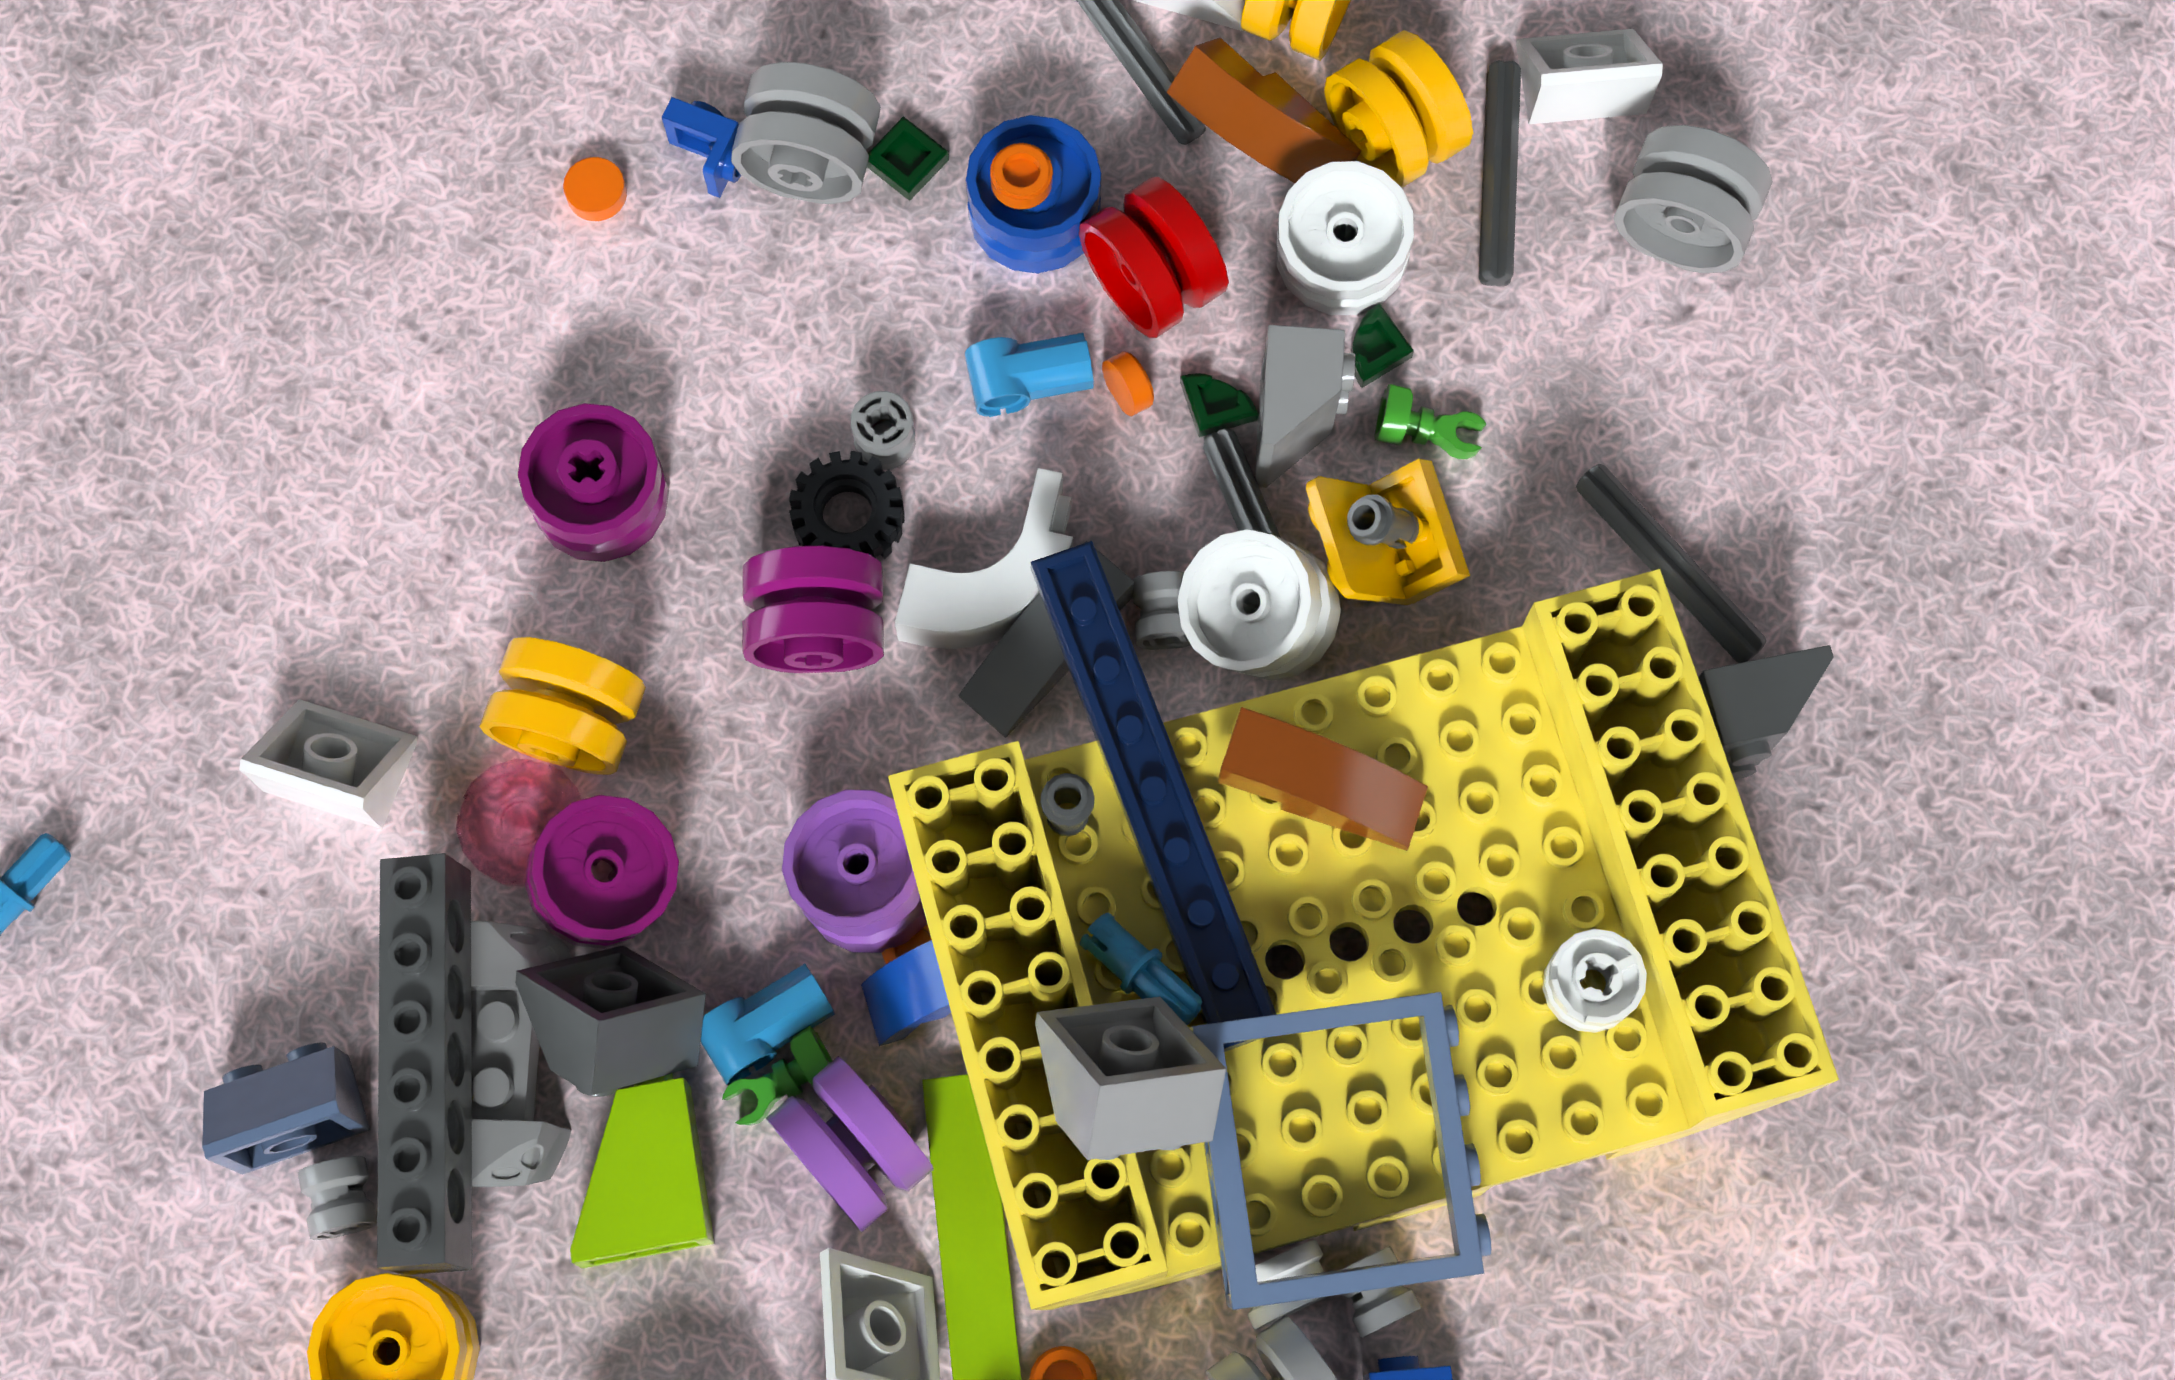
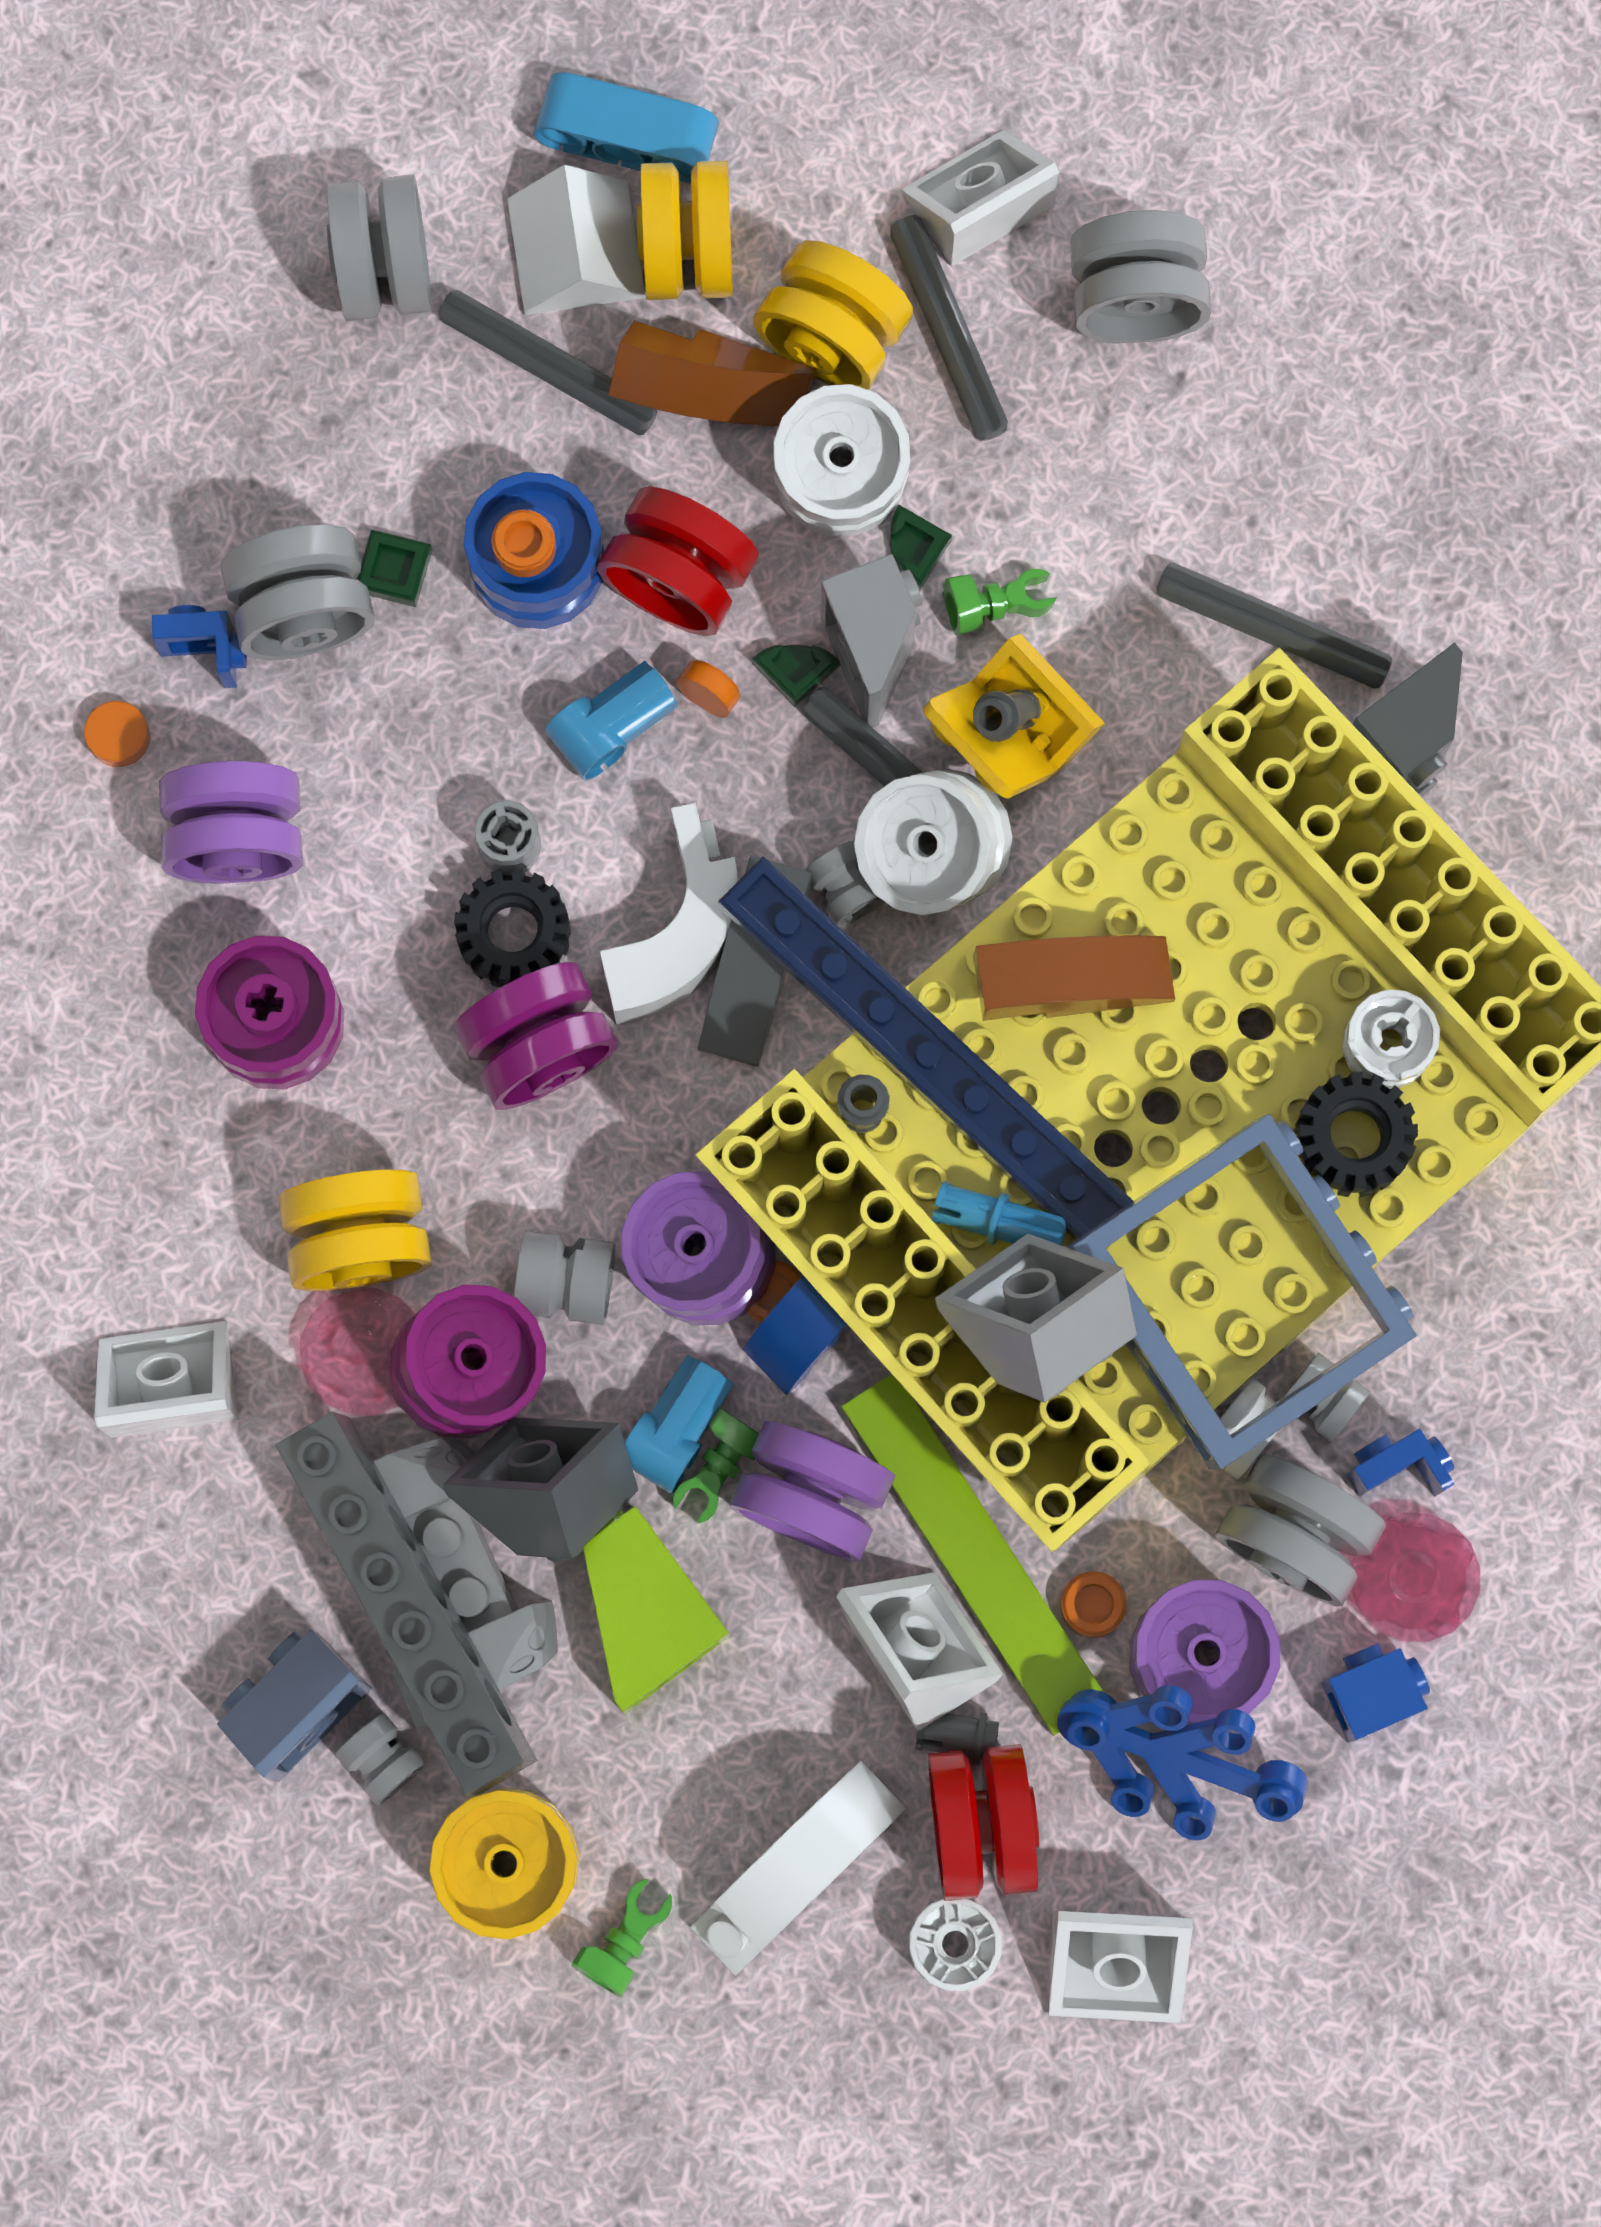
camera: 25 degrees left, 5 degrees up
(644, 301) = (230, 822): none -> medium lavender wheel
(733, 842) = (565, 1276): none -> light grey wheel
(1547, 1025) = (1378, 1102): none -> black tyre

